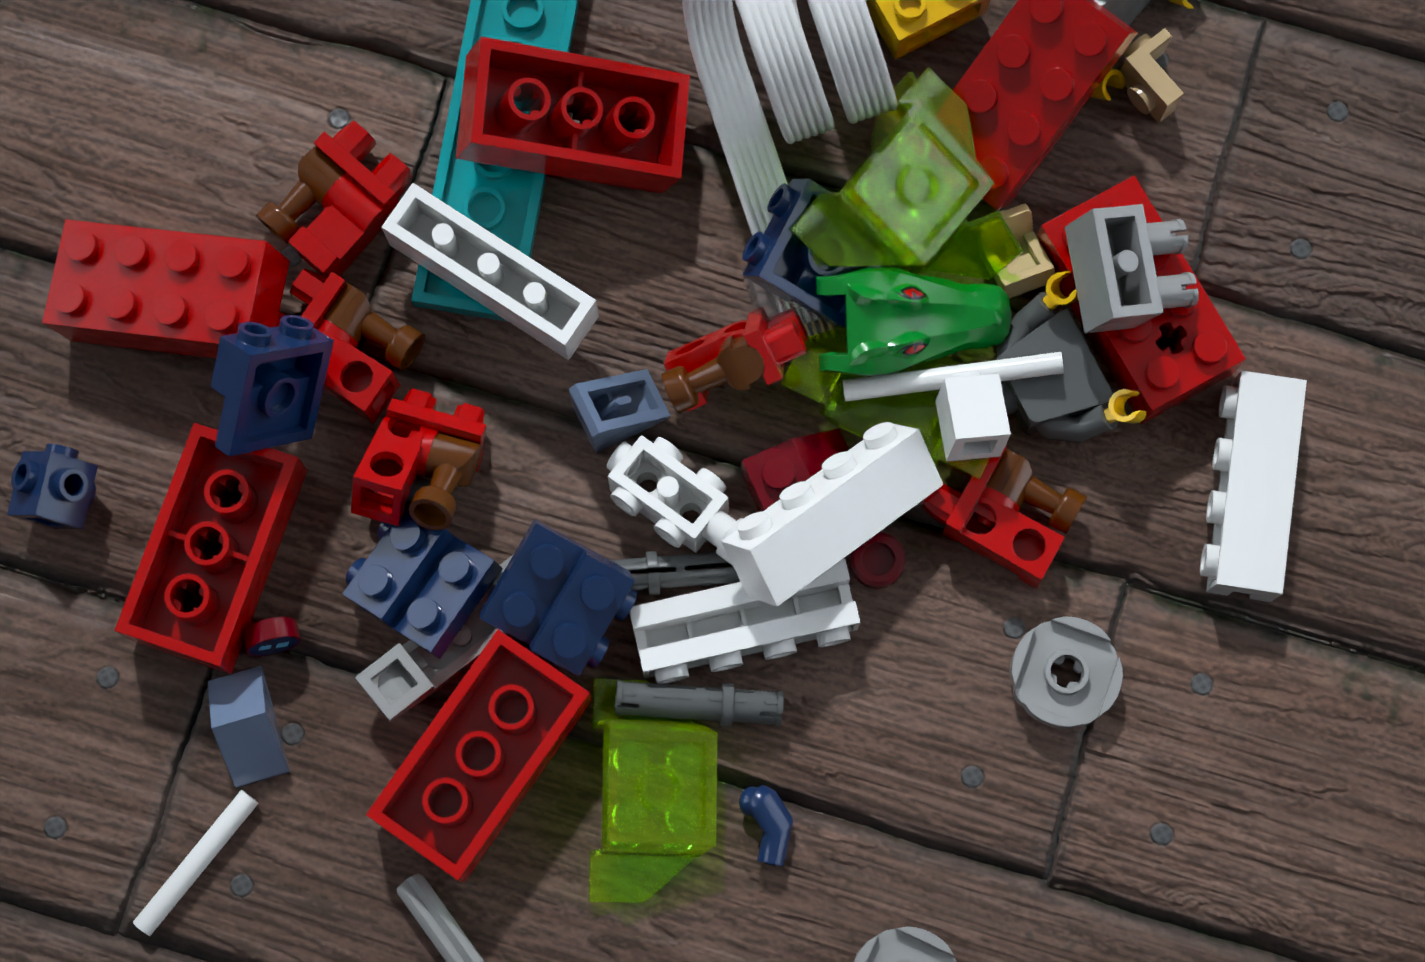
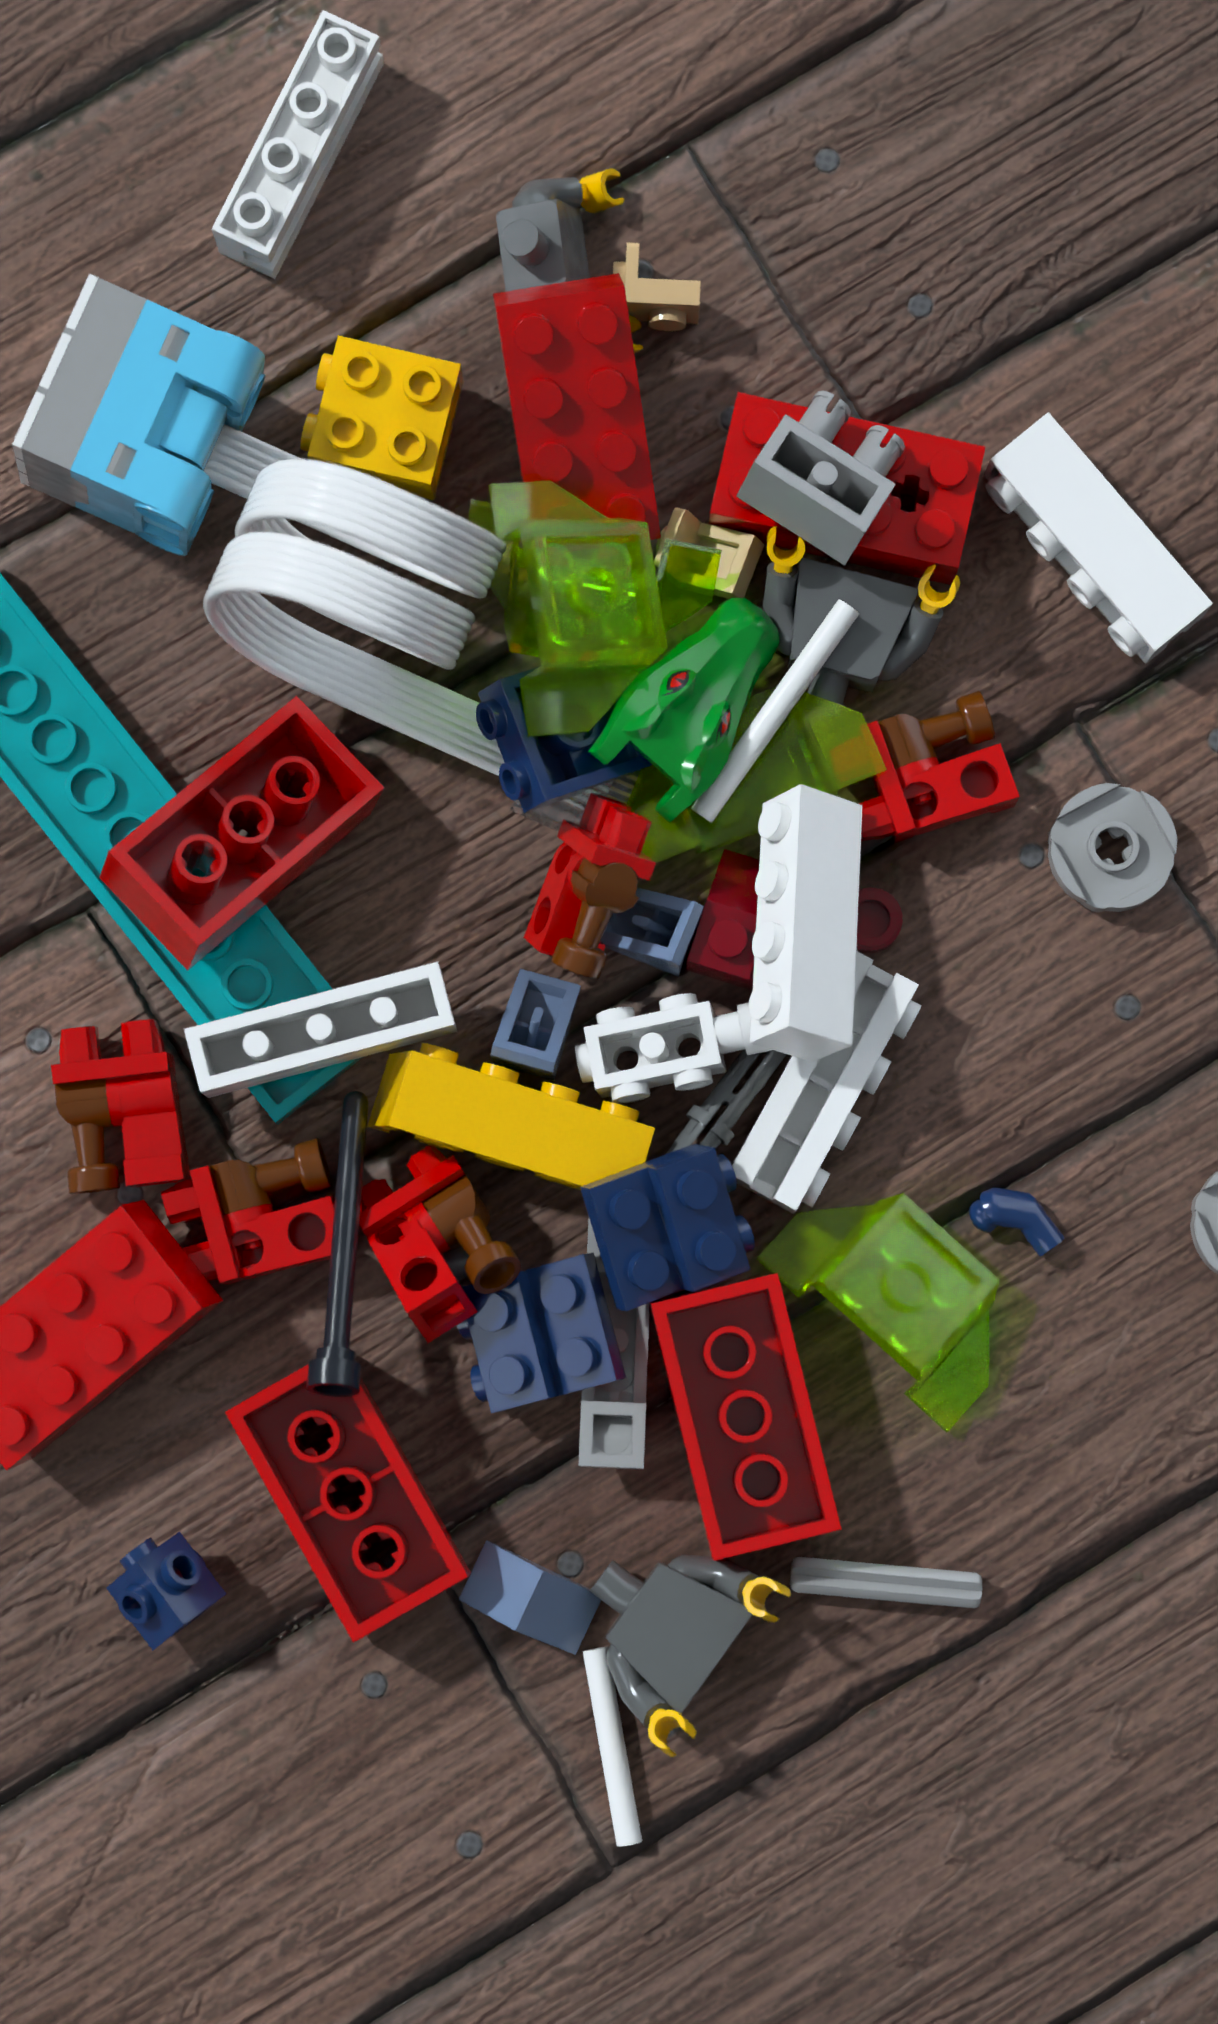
camera: 45 degrees left, 5 degrees up
(270, 384) = (255, 1314): dark blue plate -> none
(271, 636) = (470, 1508): dark red tile -> none
(279, 463) = (335, 1369): none -> black piece
(301, 836) = (676, 1632): none -> dark grey torso
(539, 443) = (506, 1120): none -> yellow wedge
(699, 703) = (869, 1177): dark grey pin -> none
(743, 422) = (655, 930): none -> sand blue slope
(972, 416) = (830, 727): white brick -> none

